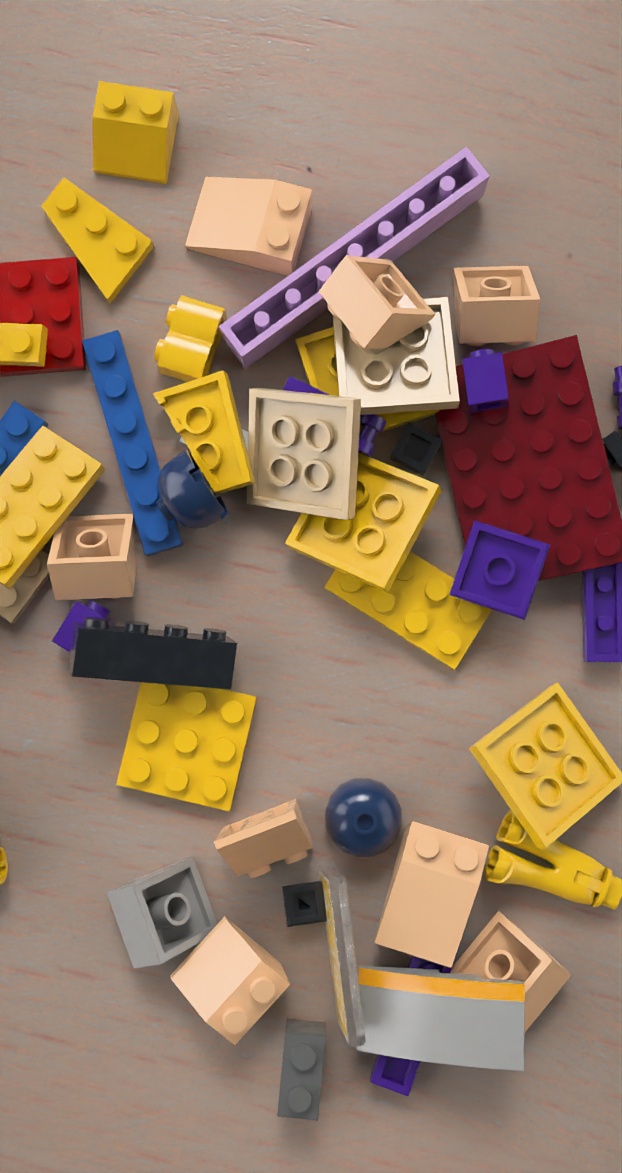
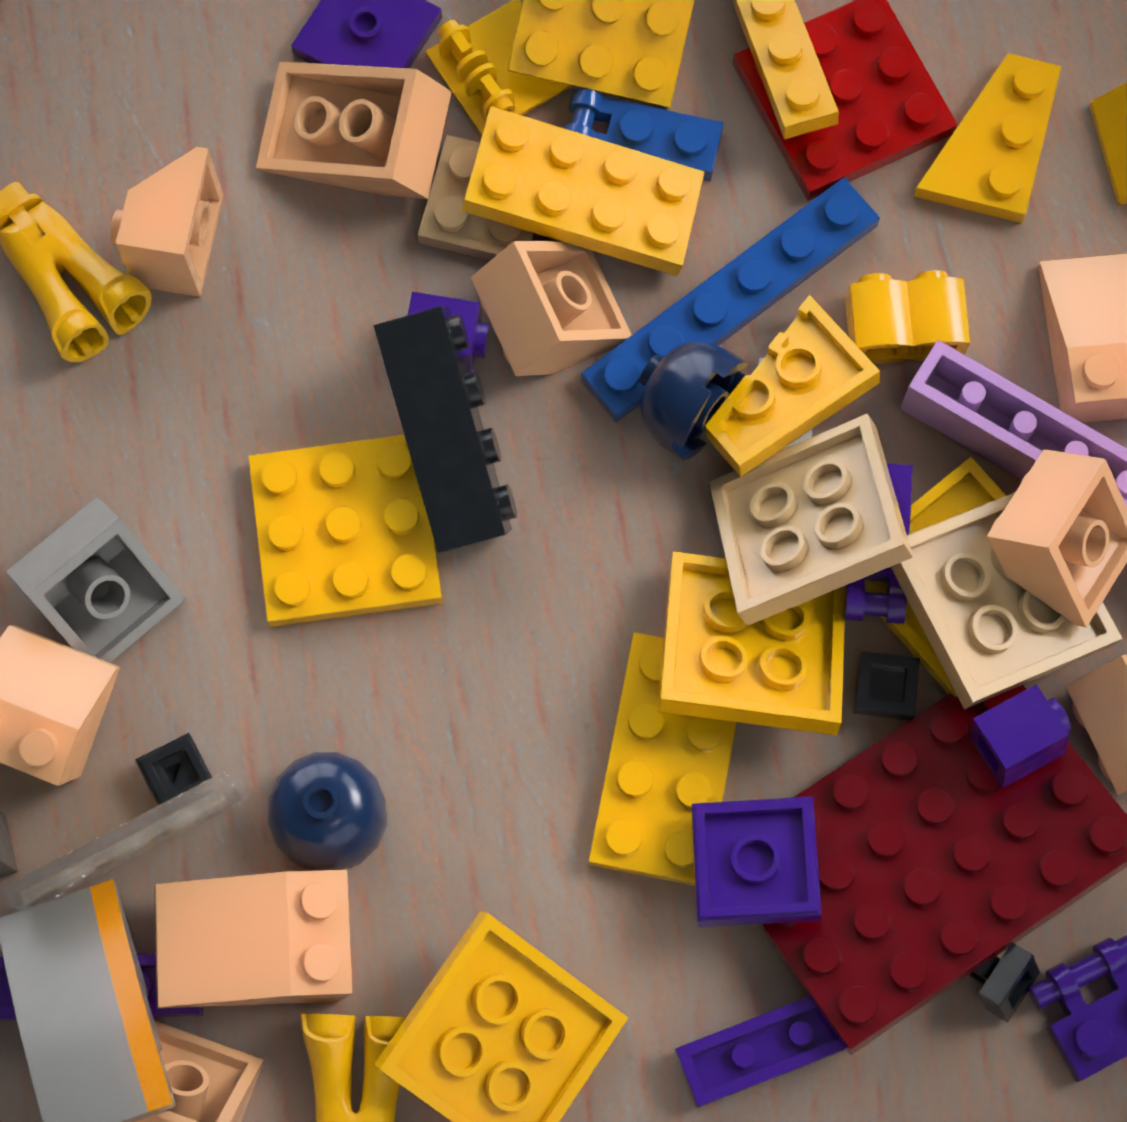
camera: 65 degrees right, 10 degrees down
(264, 839) = (246, 676): light nougat slope -> none

